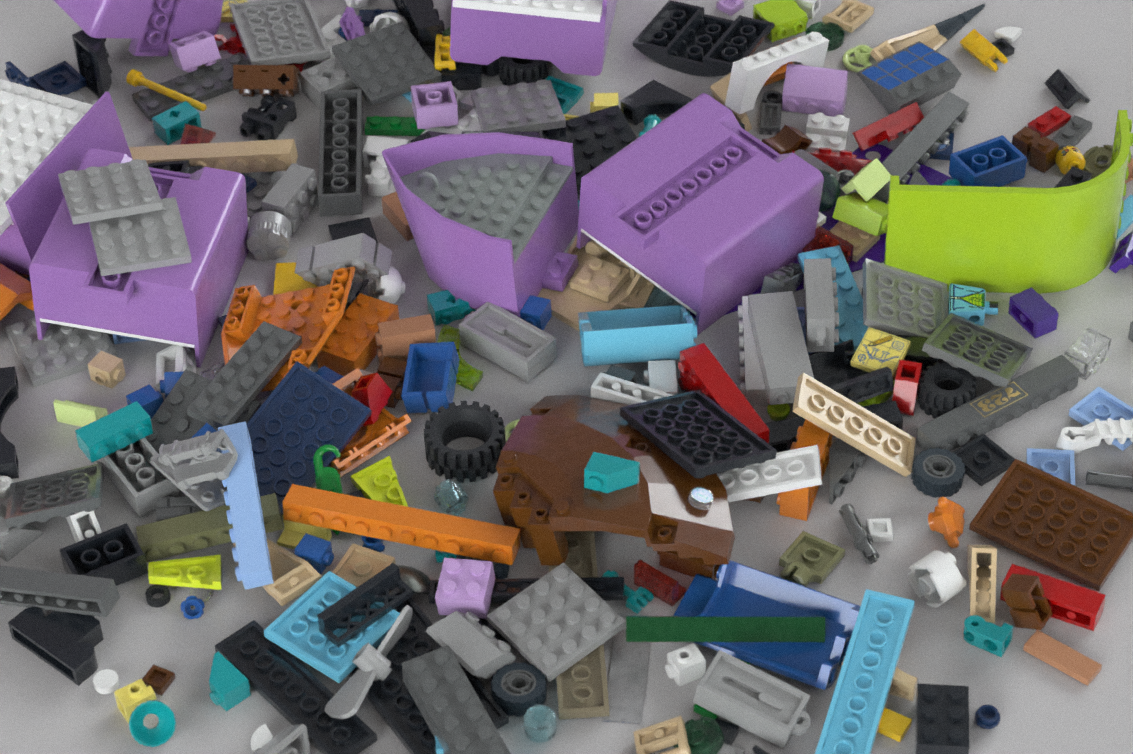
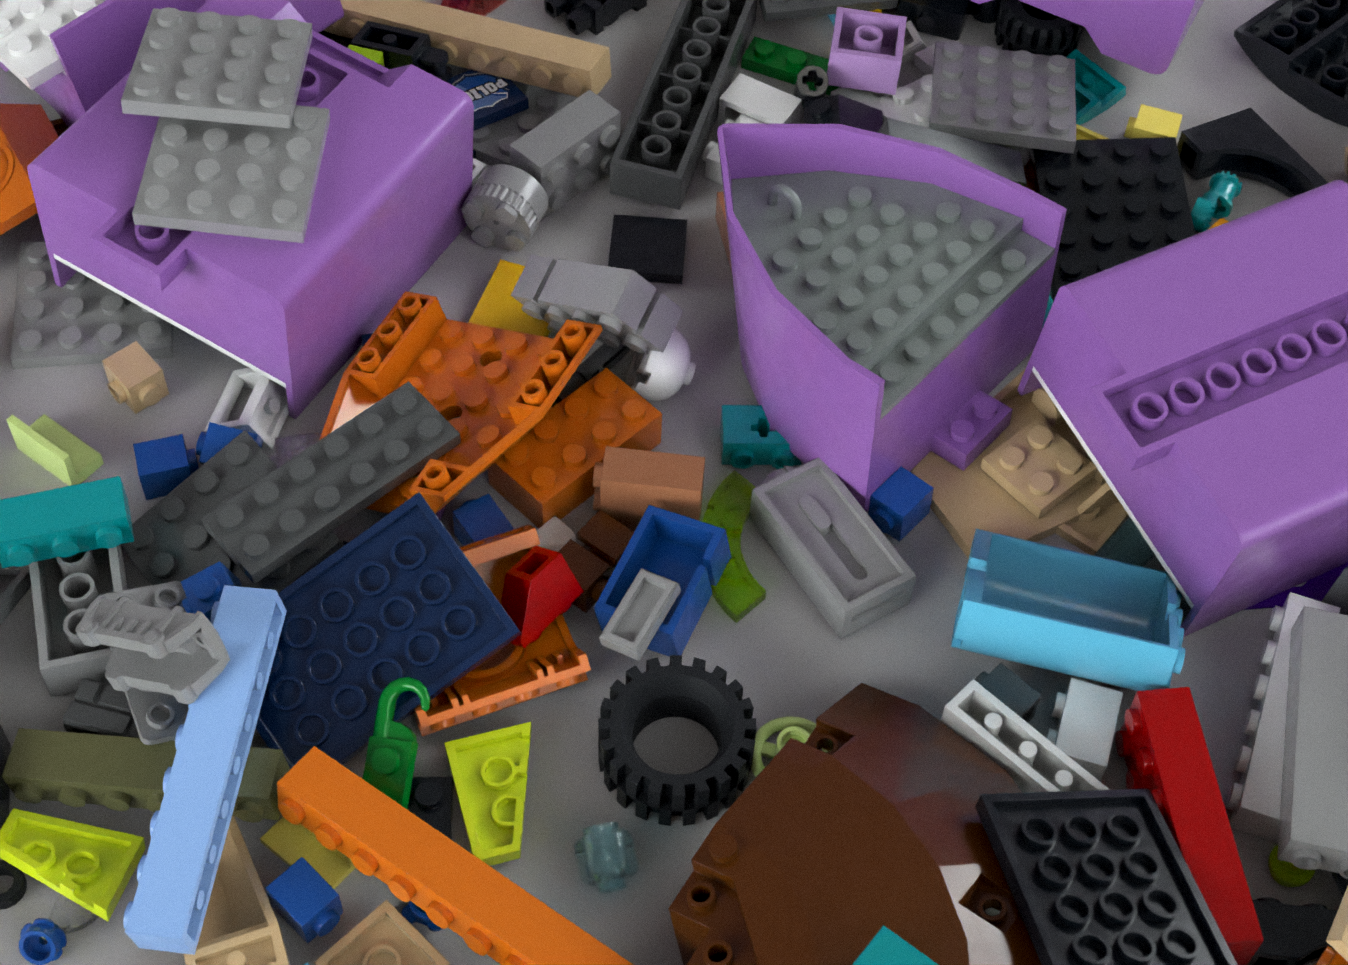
camera: 15 degrees right, 10 degrees up
(412, 125) = (811, 74): none -> black hinge
(426, 389) = (640, 614): none -> light grey tile

